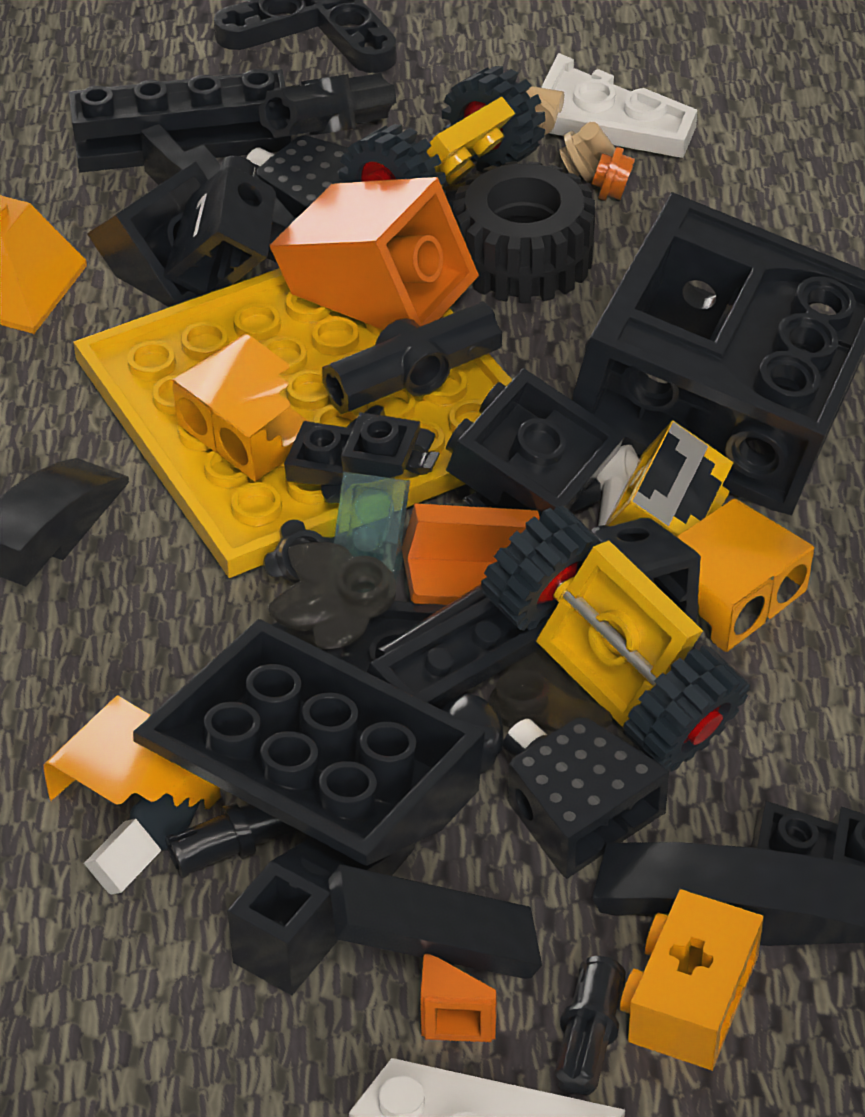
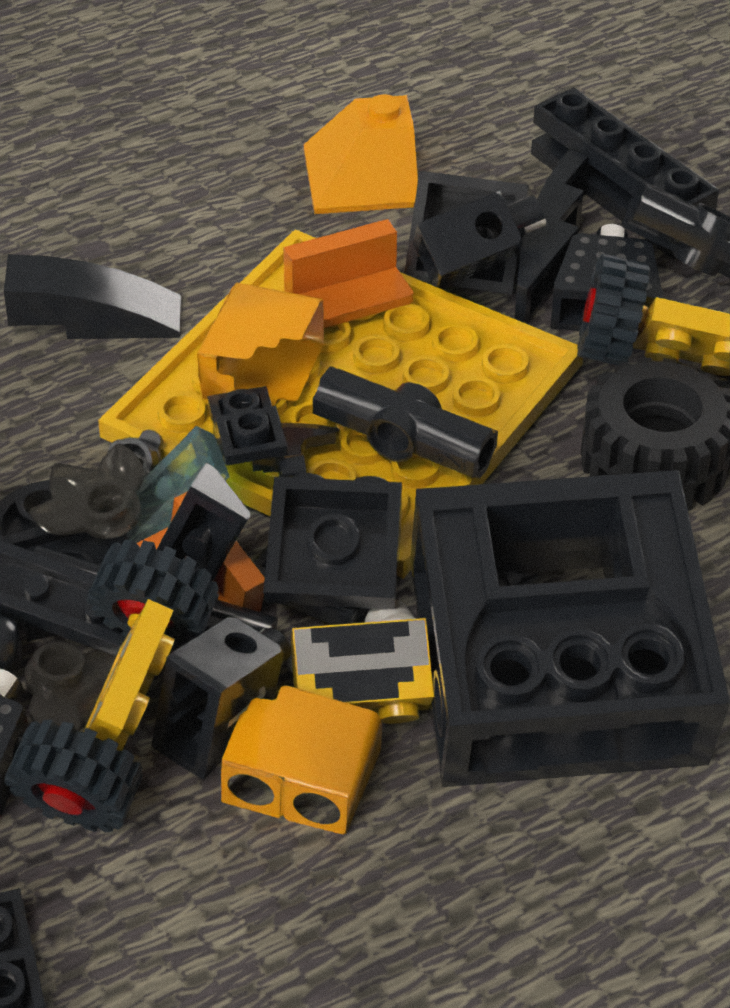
camera: 60 degrees right, 0 degrees up
(188, 324) = (349, 272): none -> orange panel
(378, 252) = (514, 349): orange slope -> none
(472, 517) = (206, 522): none -> black slope

